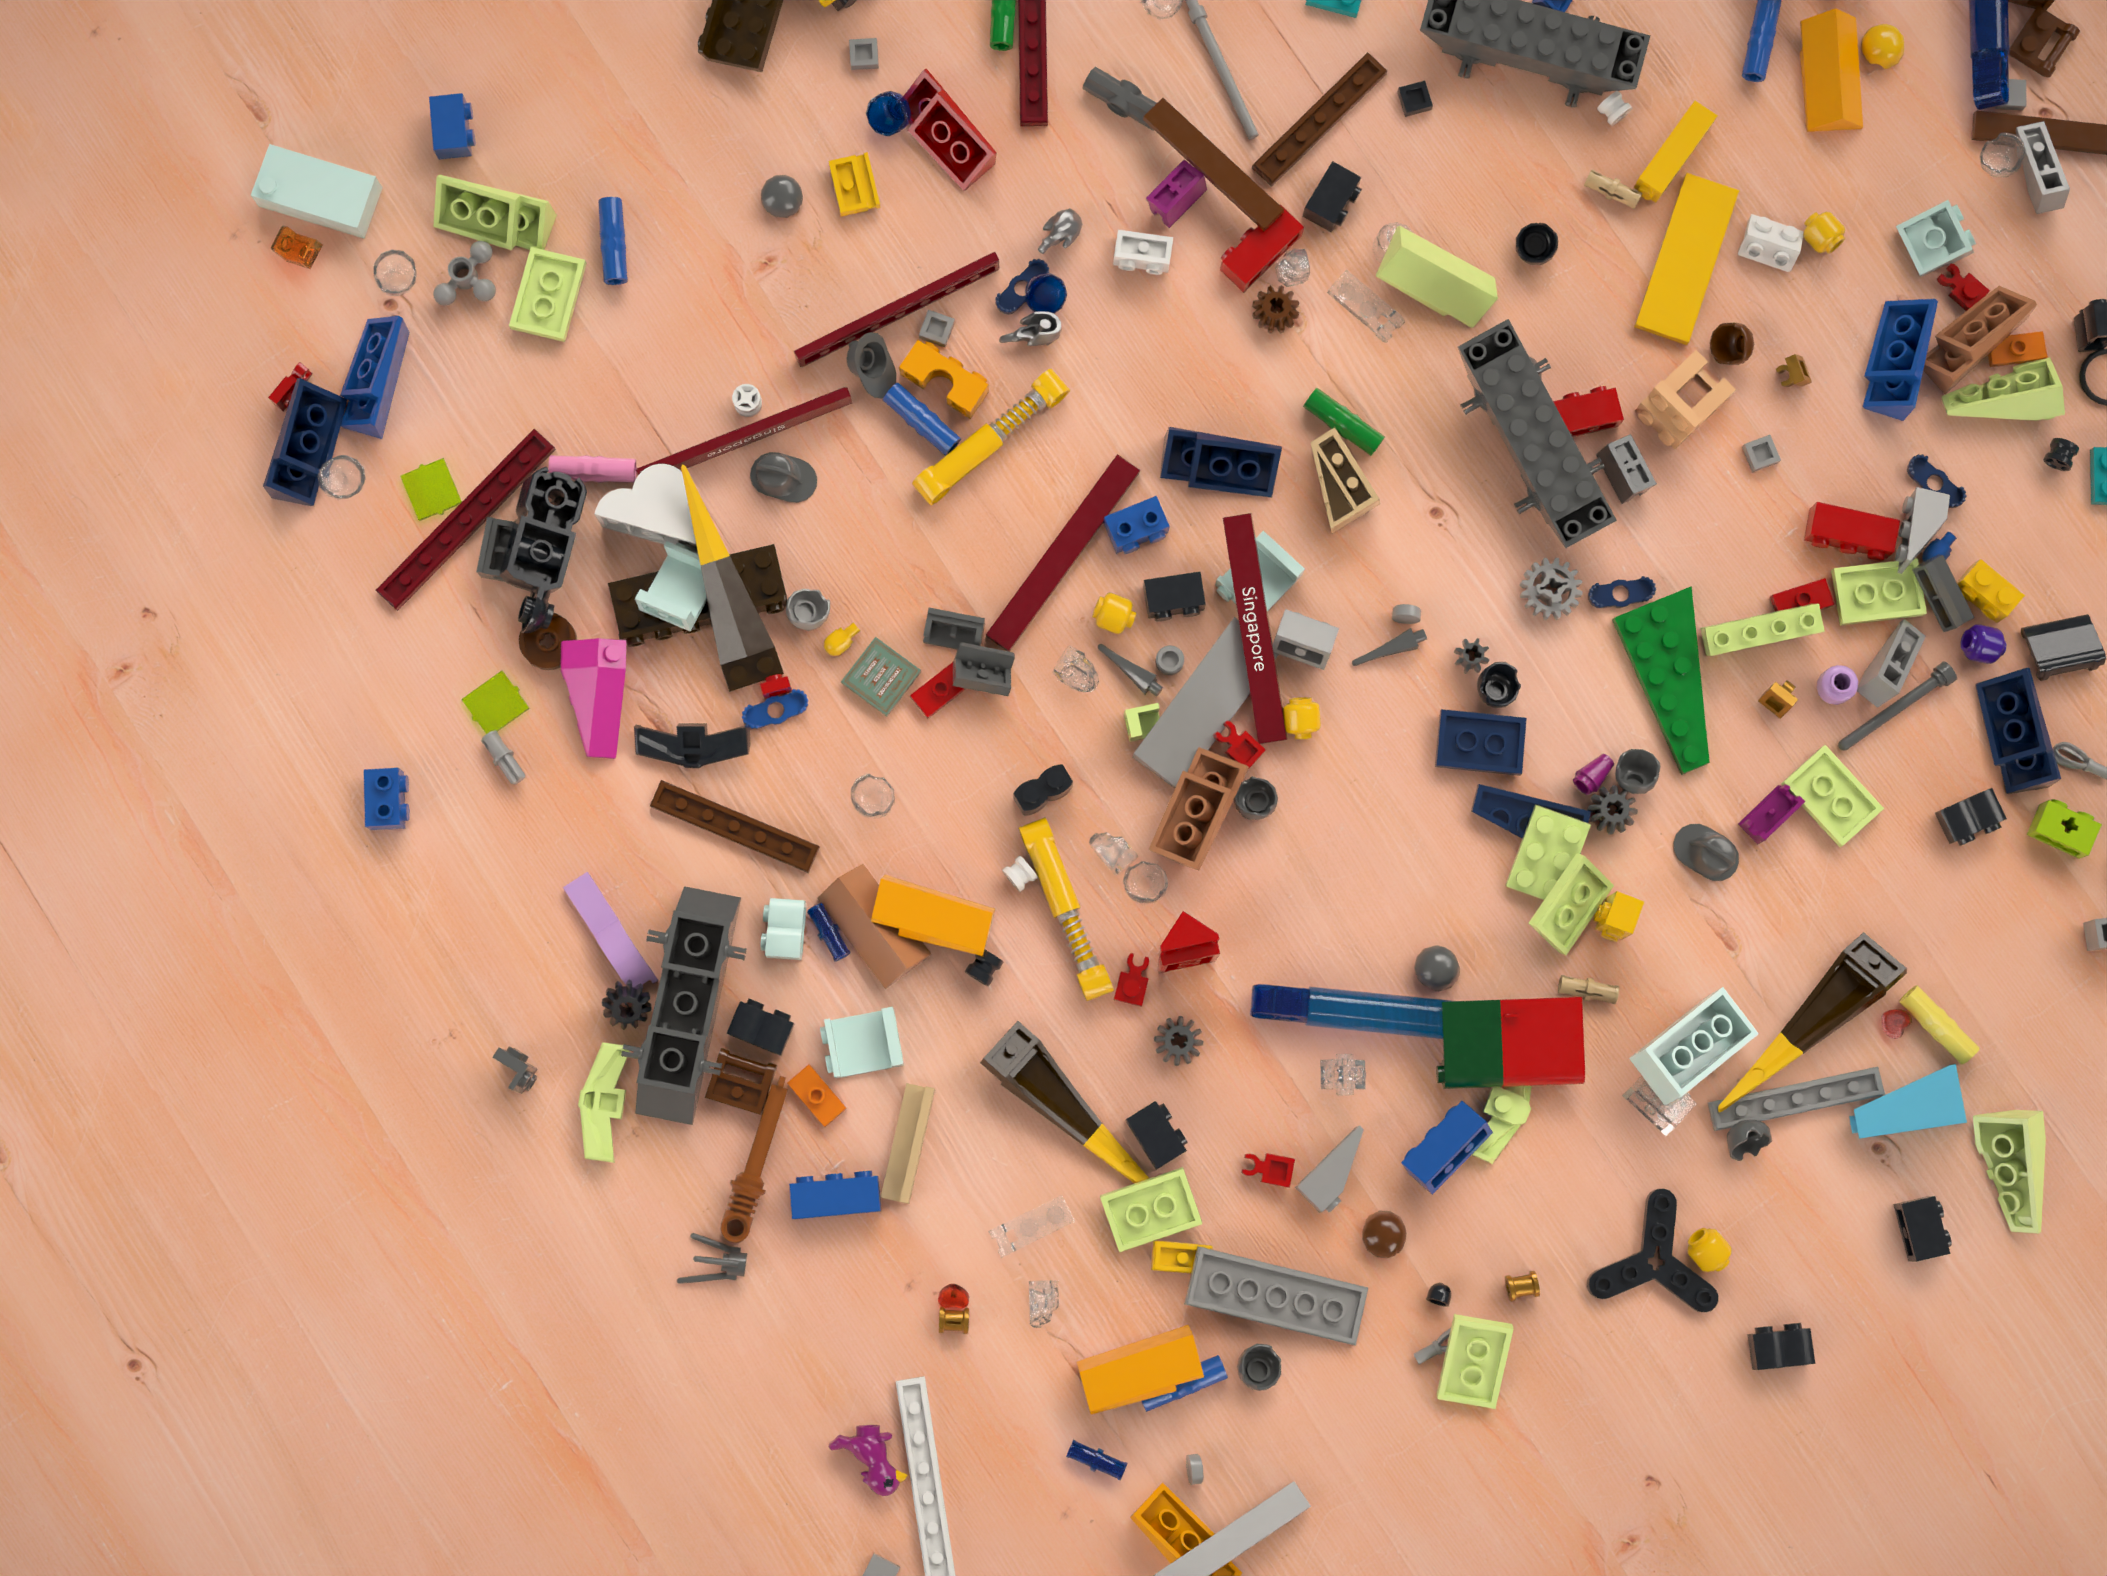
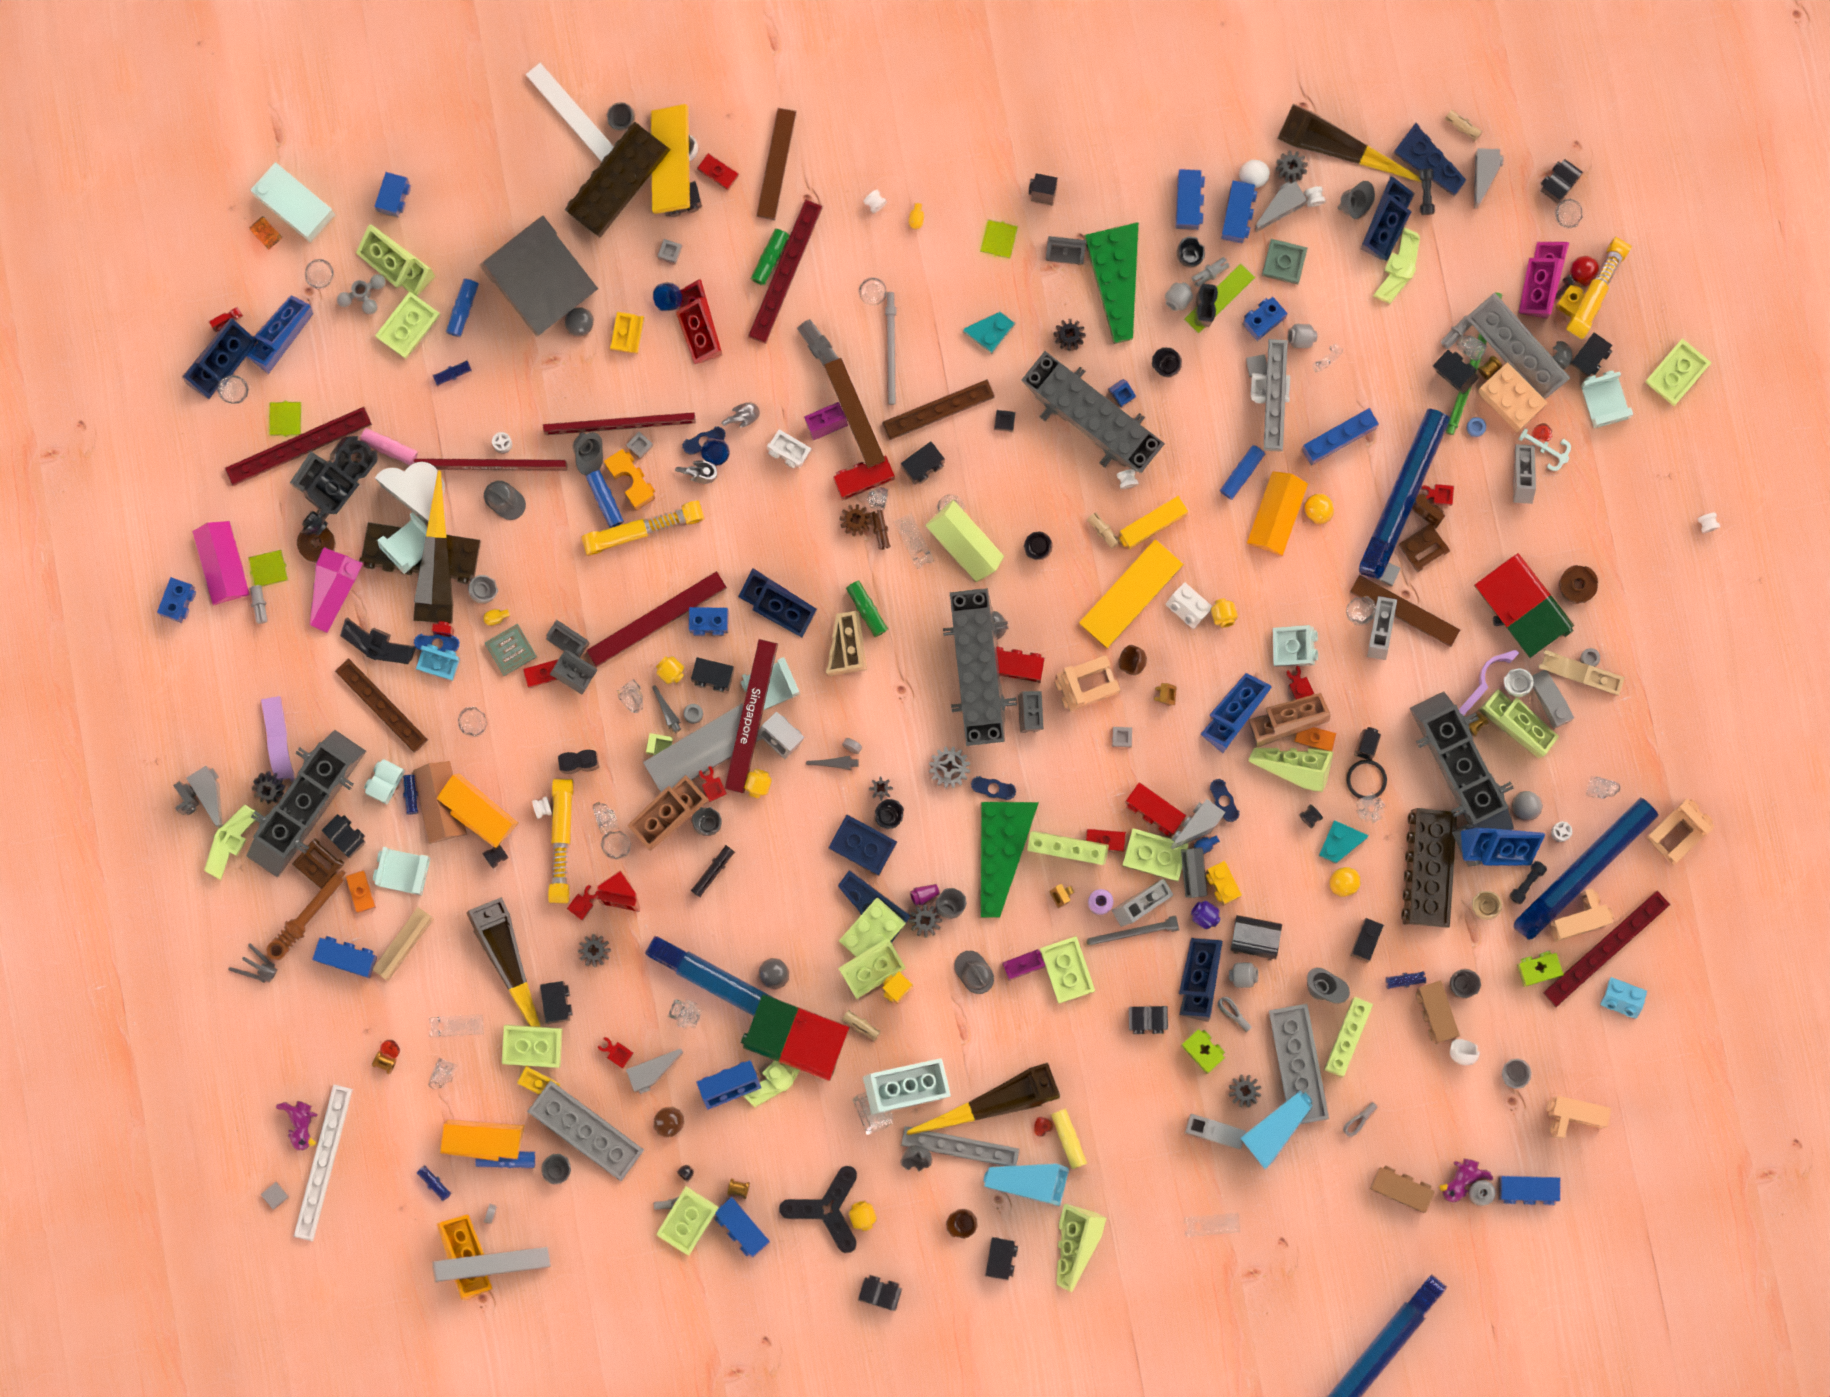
camera: 30 degrees right, 0 degrees up
(425, 721) = (221, 562): none -> dark pink slope
(541, 1044) = (208, 792): none -> light grey slope
(637, 334) = (452, 372): none -> clear blue pin
(702, 150) = (539, 276): none -> black piece
(788, 734) = (438, 662): none -> medium azure bracket
(1291, 868) = (713, 870): none -> black pin
(1315, 309) = (880, 530): none -> reddish brown pin
(1552, 1339) = (741, 1228): none -> blue brick
(1849, 1202) = (961, 1223): none -> reddish brown hair
(2071, 703) = (1244, 975): none -> light grey head

